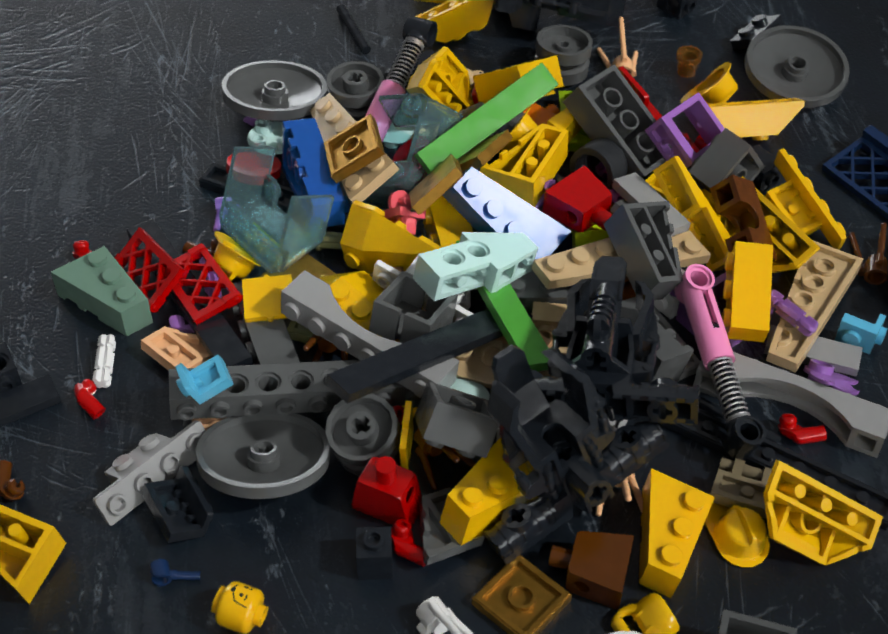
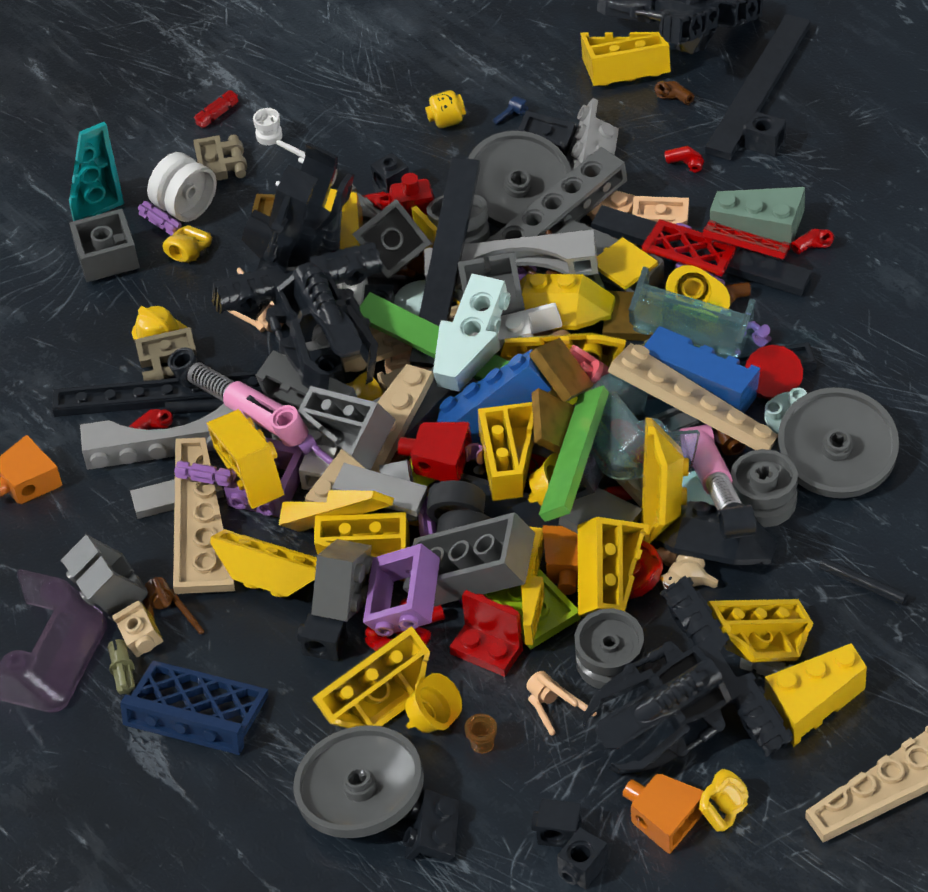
camera: 150 degrees right, 0 degrees up
(104, 361) = (702, 182): white axle -> none
(204, 380) = (587, 157): medium azure bracket -> none
(353, 148) = (665, 368): pearl gold tile -> none
(595, 566) = (232, 251): reddish brown torso -> none
(670, 530) = (195, 285): yellow wedge -> none
(739, 203) = (288, 524): reddish brown arch -> none
(801, 203) = (254, 606): yellow bracket -> none
(815, 517) = (108, 345): yellow wedge -> none
(824, 374) = (143, 463): medium lavender plate -> none
(861, 332) = (142, 519): medium azure bracket -> none

